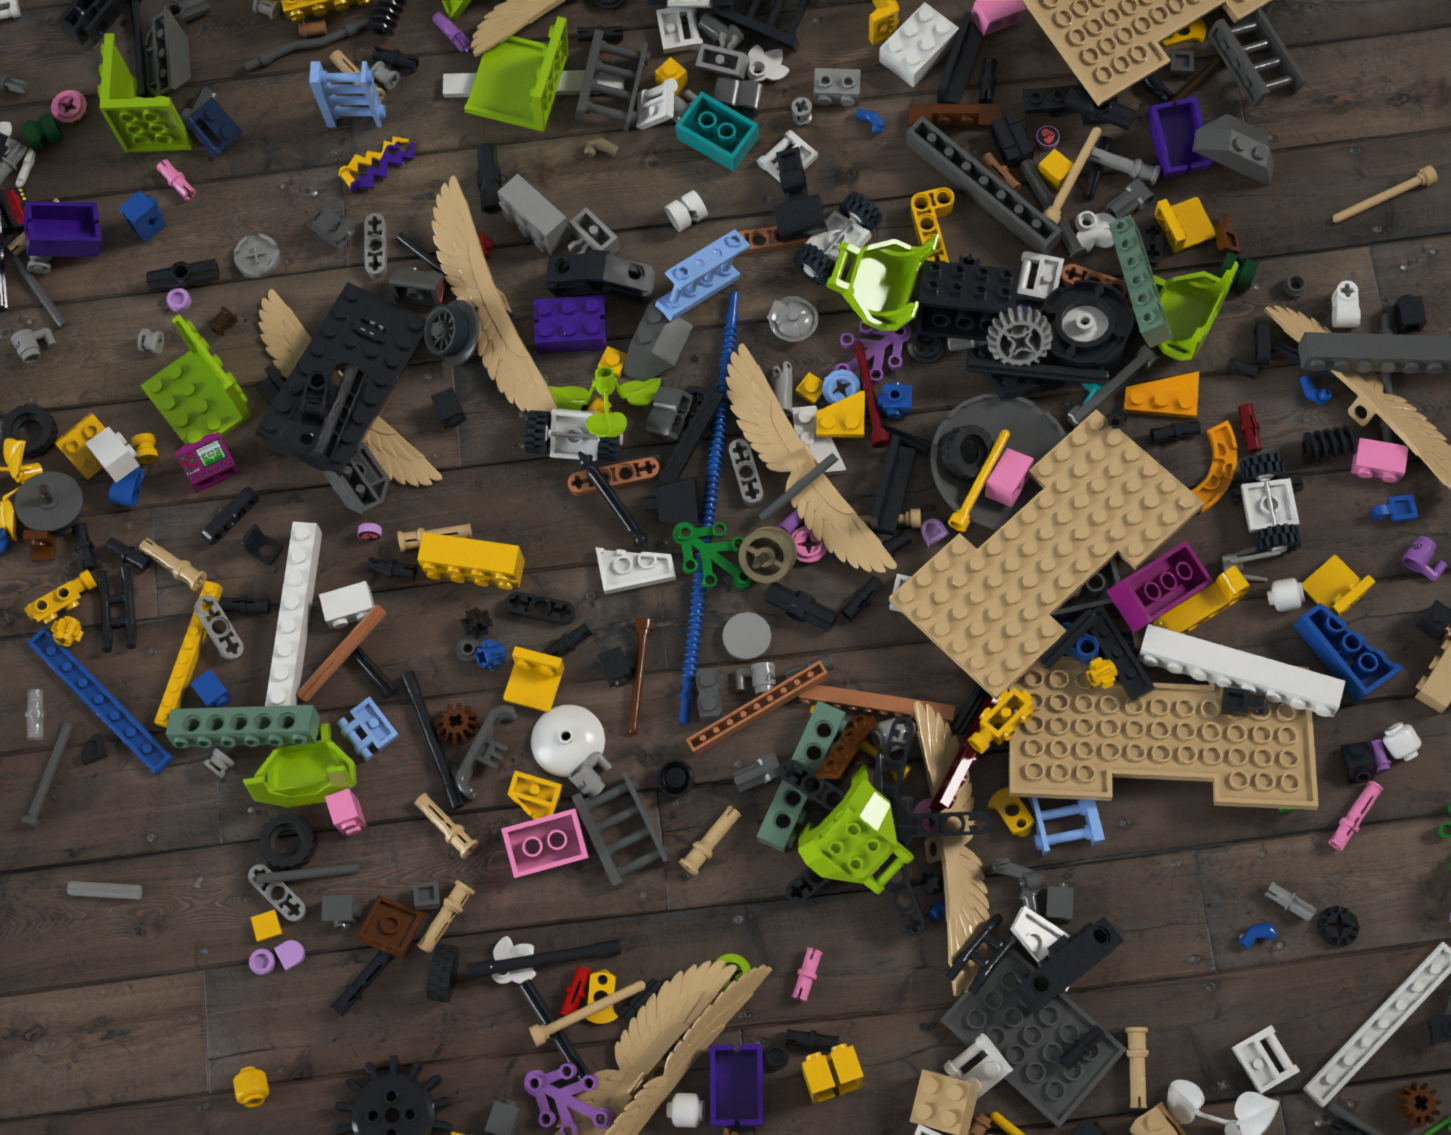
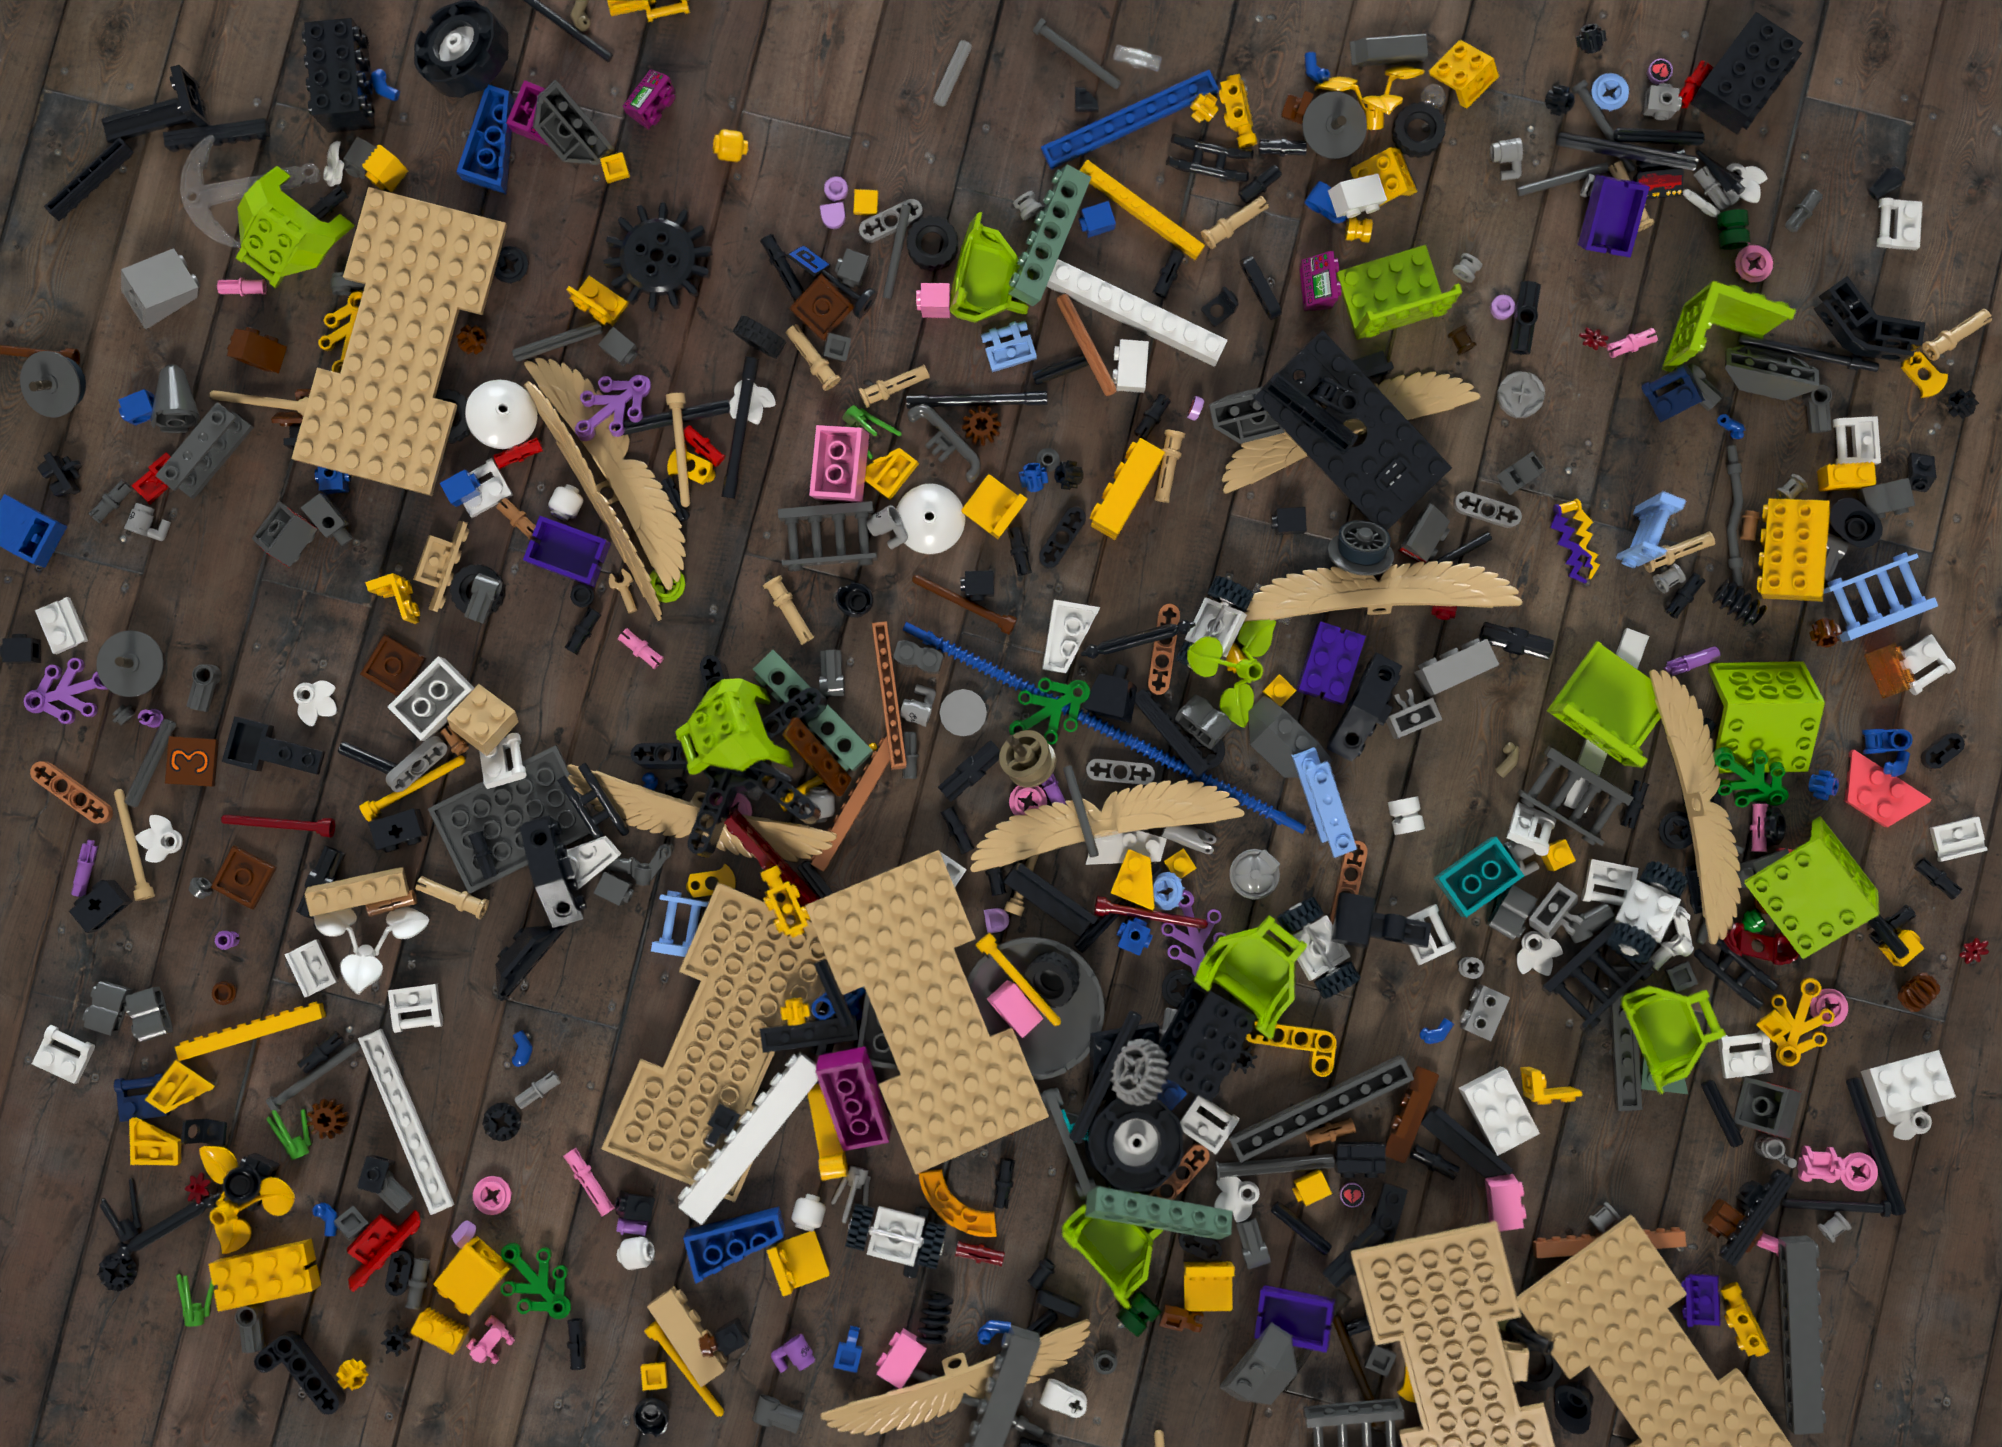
camera: 105 degrees right, 15 degrees up
(143, 215) = (1600, 297): blue brick -> none
(183, 212) = (1594, 339): none -> dark red plant
(203, 615) = (1168, 232): light grey beam -> none
(226, 71) = (1736, 428): none -> blue arm
(350, 946) = (816, 265): none -> black piece
(491, 847) = (856, 418): none -> bright green plant
(753, 1016) = (624, 589): none -> tan bar
(845, 1070) = (542, 639): yellow piece -> none
(1053, 212) = (1264, 1162): tan piece -> none
(1118, 411) = (1033, 1133): black pin -> none
(1134, 168) = (1283, 1263): light grey pin -> none
(1163, 967) = (523, 956): none -> black wedge
(1164, 397) = (1042, 1189): light orange wing -> none
(1425, 904) = (491, 1206): none -> bright pink gear

